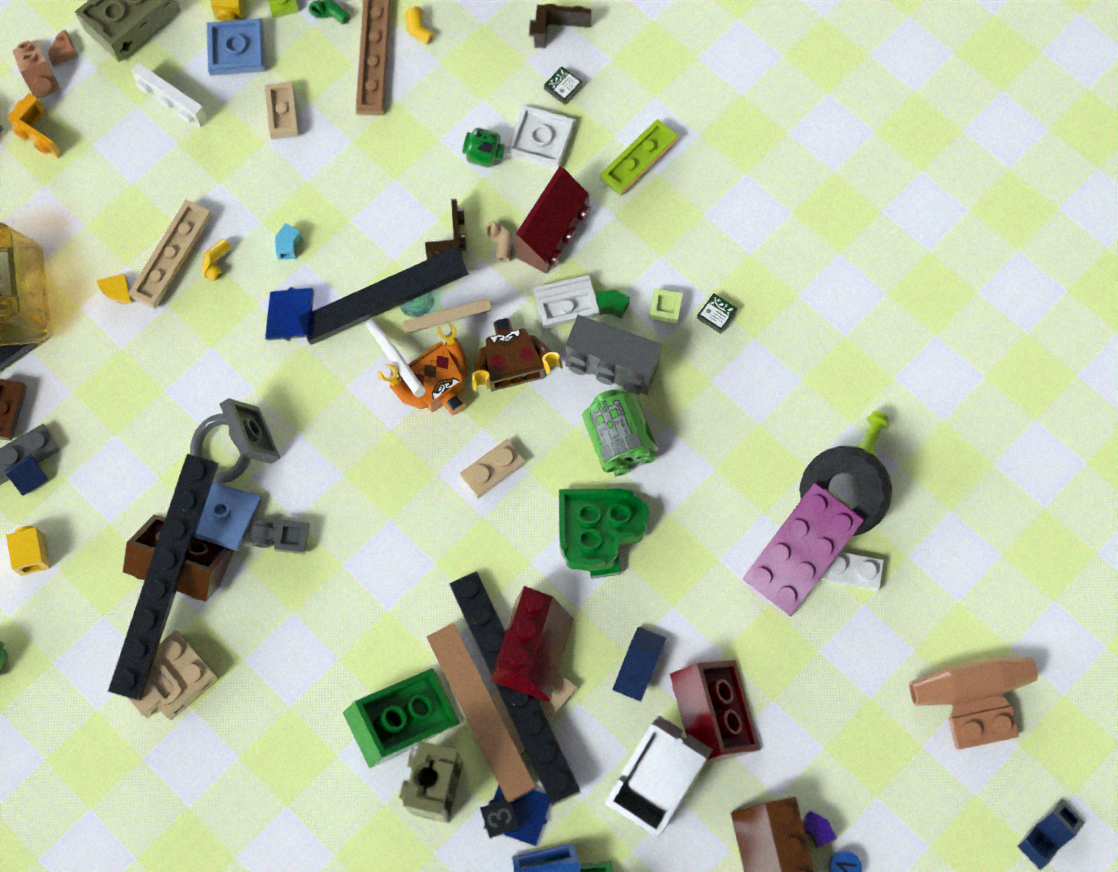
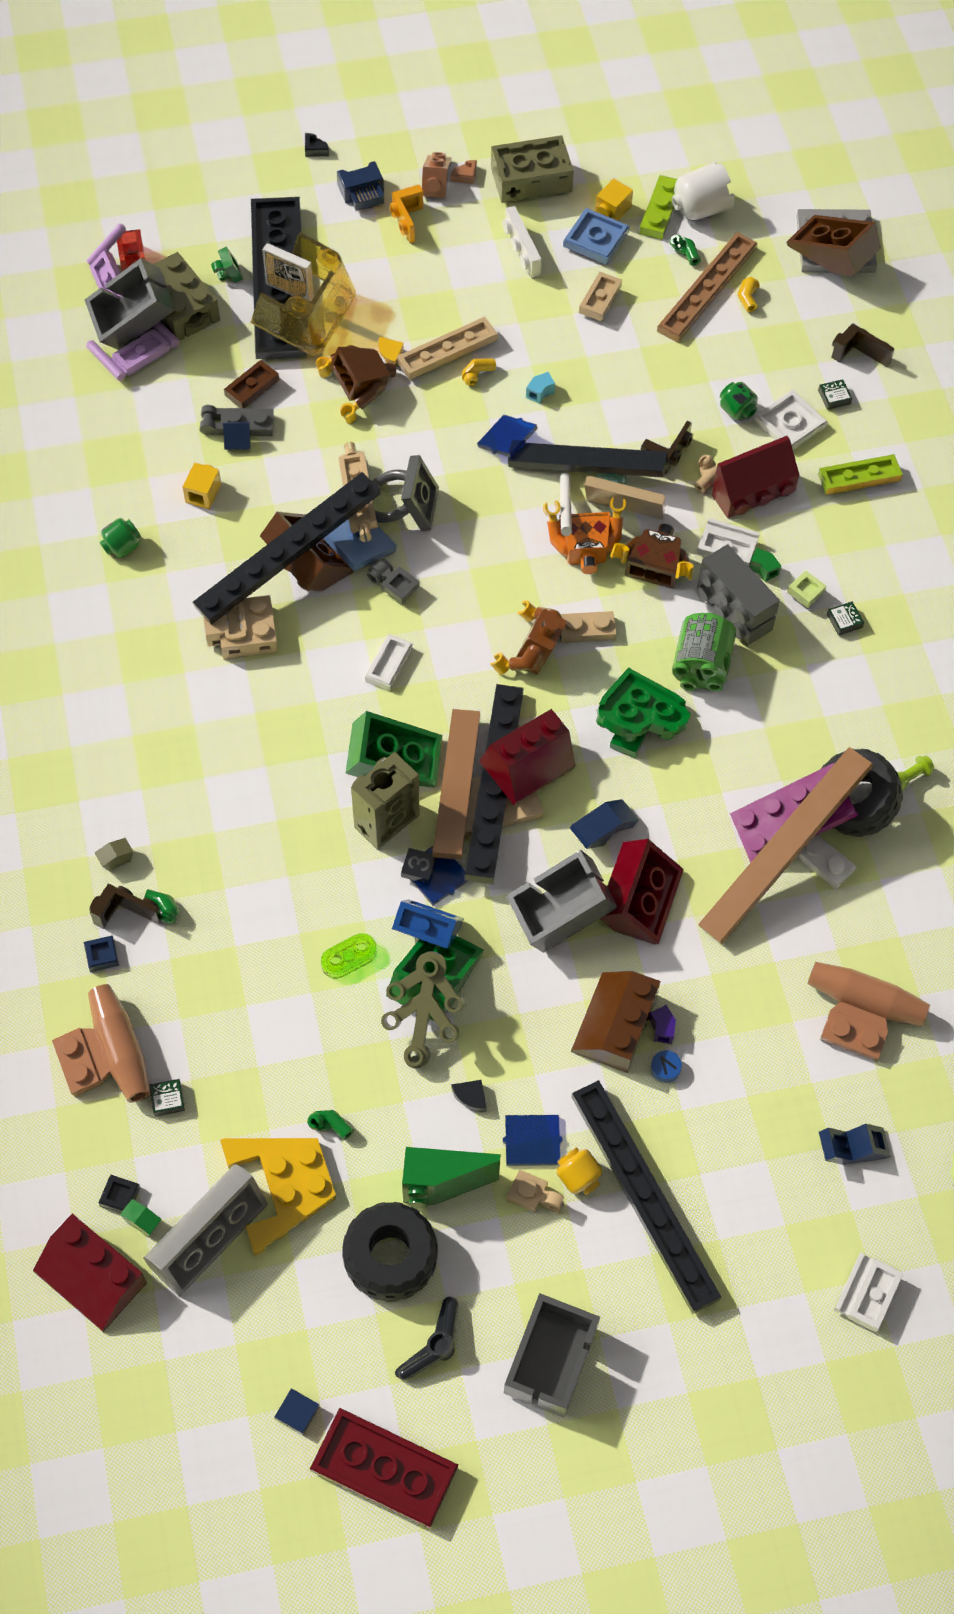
camera: 30 degrees right, 10 degrees down
(105, 335) = (360, 375): none -> reddish brown torso
(173, 450) = (351, 465): none -> tan plate
(332, 623) = (388, 662): none -> white tile
(462, 516) = (538, 642): none -> dark orange torso
(820, 589) = (785, 845): none -> medium nougat tile

